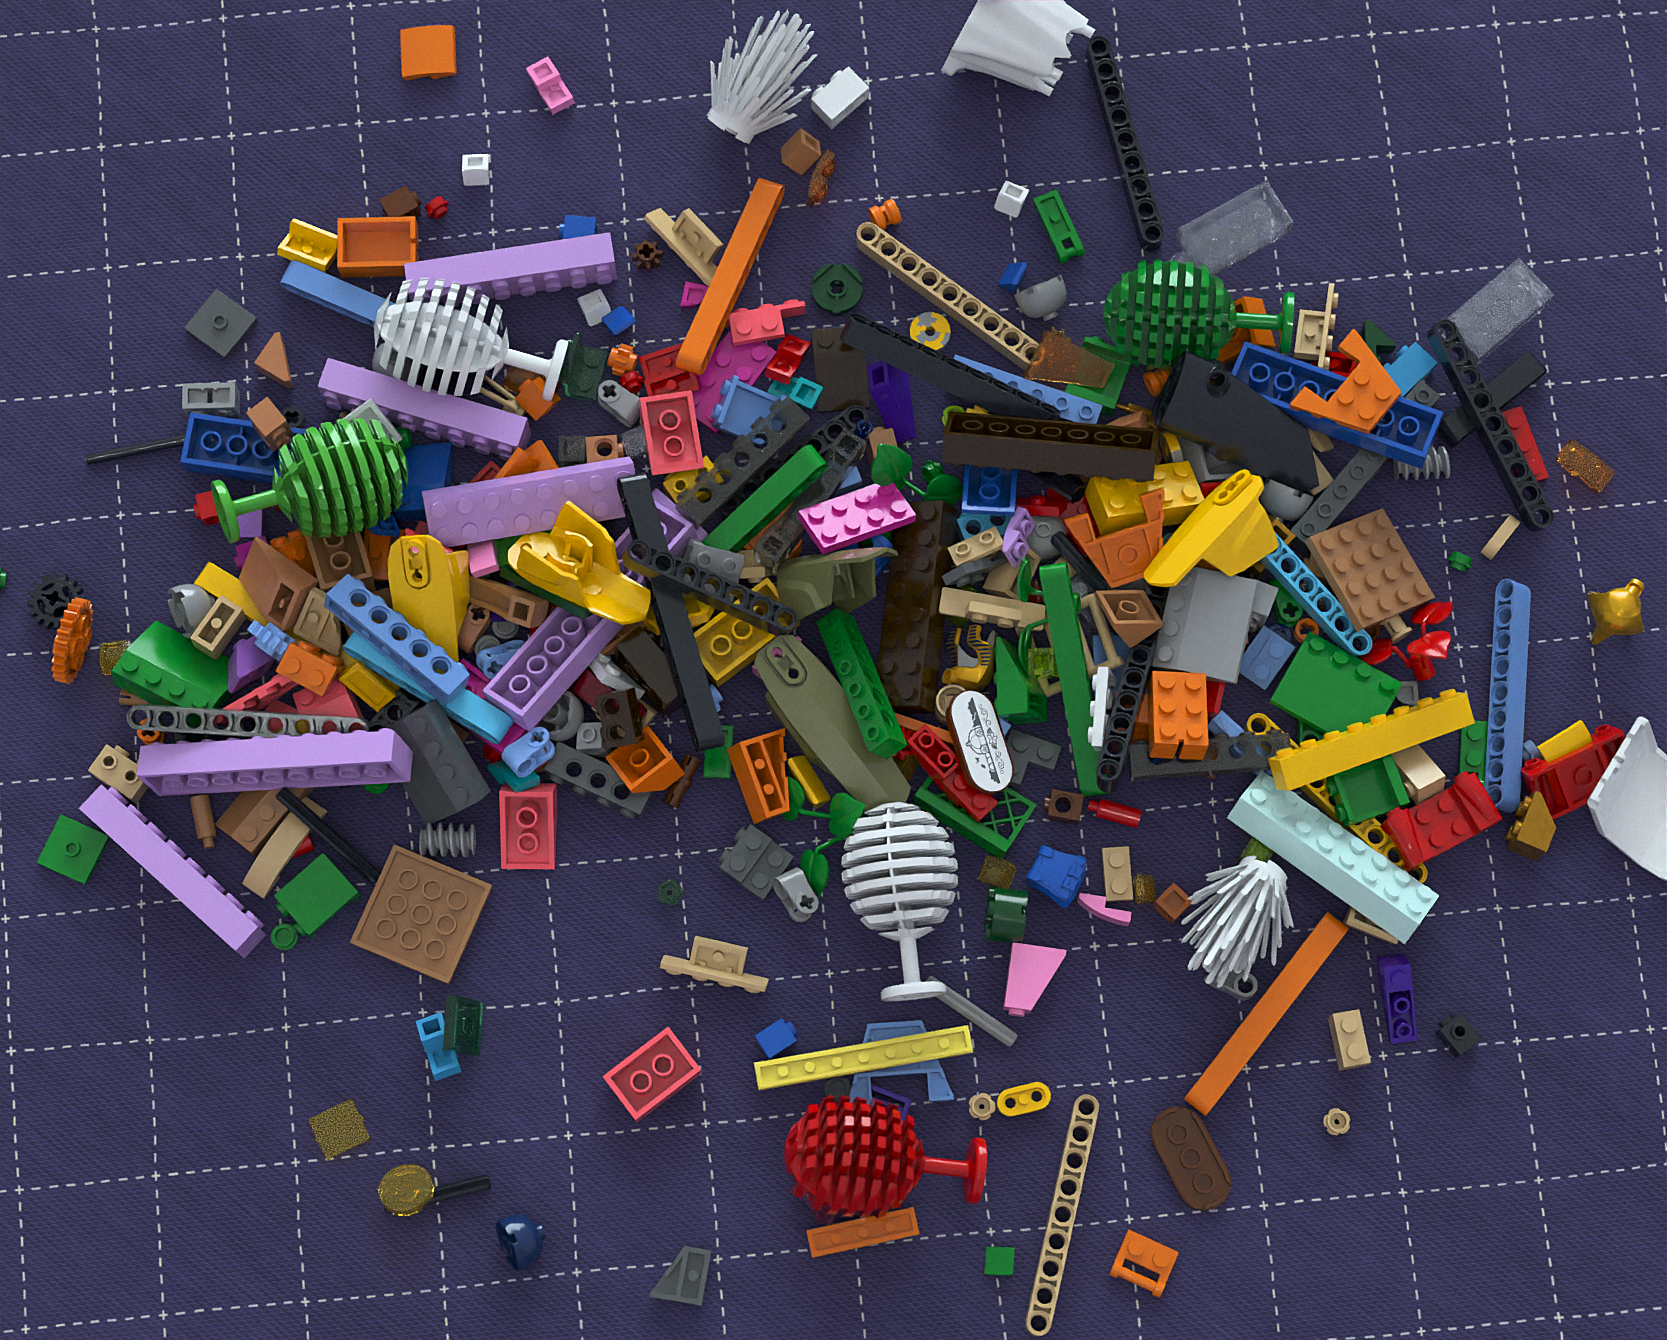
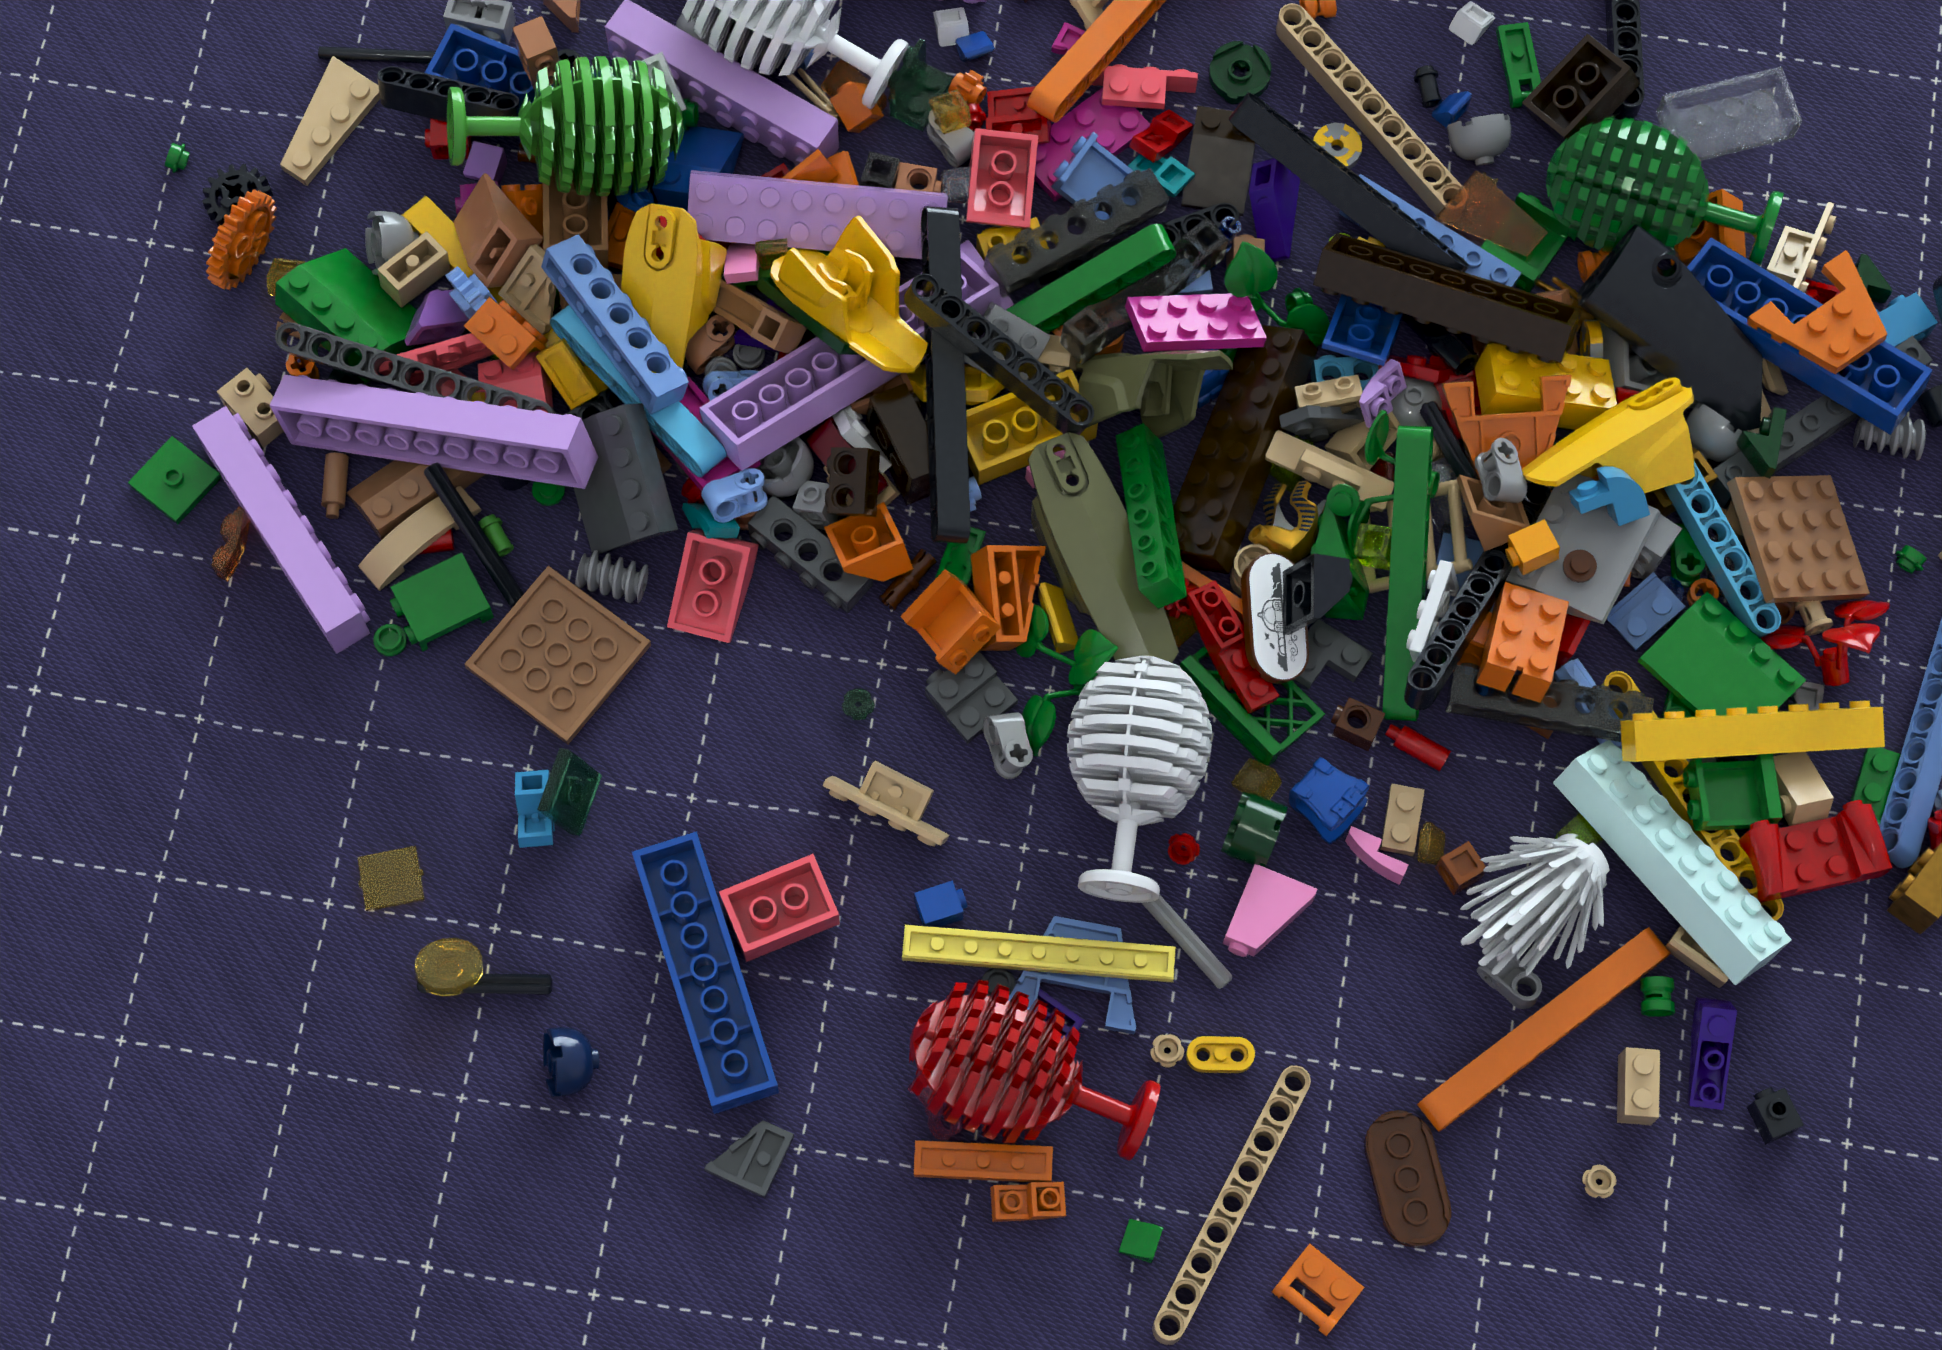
camera: 15 degrees right, 5 degrees down
(112, 511) = (332, 115): none -> tan wing
(135, 882) = (235, 535): none -> clear orange slope
(195, 478) = (427, 95): none -> black beam
(344, 829) = (496, 534): none -> bright green pin
(503, 542) = (769, 251): none -> clear yellow tile
(608, 1141) = (705, 973): none -> blue brick
(614, 384) = (950, 111): none -> clear yellow slope
(726, 809) = (951, 621): none -> orange panel
(905, 1254) = (1028, 1201): none -> orange slope
(953, 943) = (1180, 854): none -> red plate
(990, 262) = (1428, 86): none -> black pin
(1005, 716) = (1313, 589): none -> black slope
(1009, 634) = (1343, 499): none -> green plate
(1113, 241) = (1581, 89): none -> dark brown brick
(1128, 585) = (1501, 475): none -> light grey piece
(1167, 638) = (1532, 547): none -> light orange brick
(1207, 643) = (1579, 566): none -> reddish brown plate
(1219, 577) = (1614, 489): none -> dark azure brick
(1326, 507) = (1764, 448): none -> dark green slope
(1347, 958) = (1657, 996): none -> green wheel

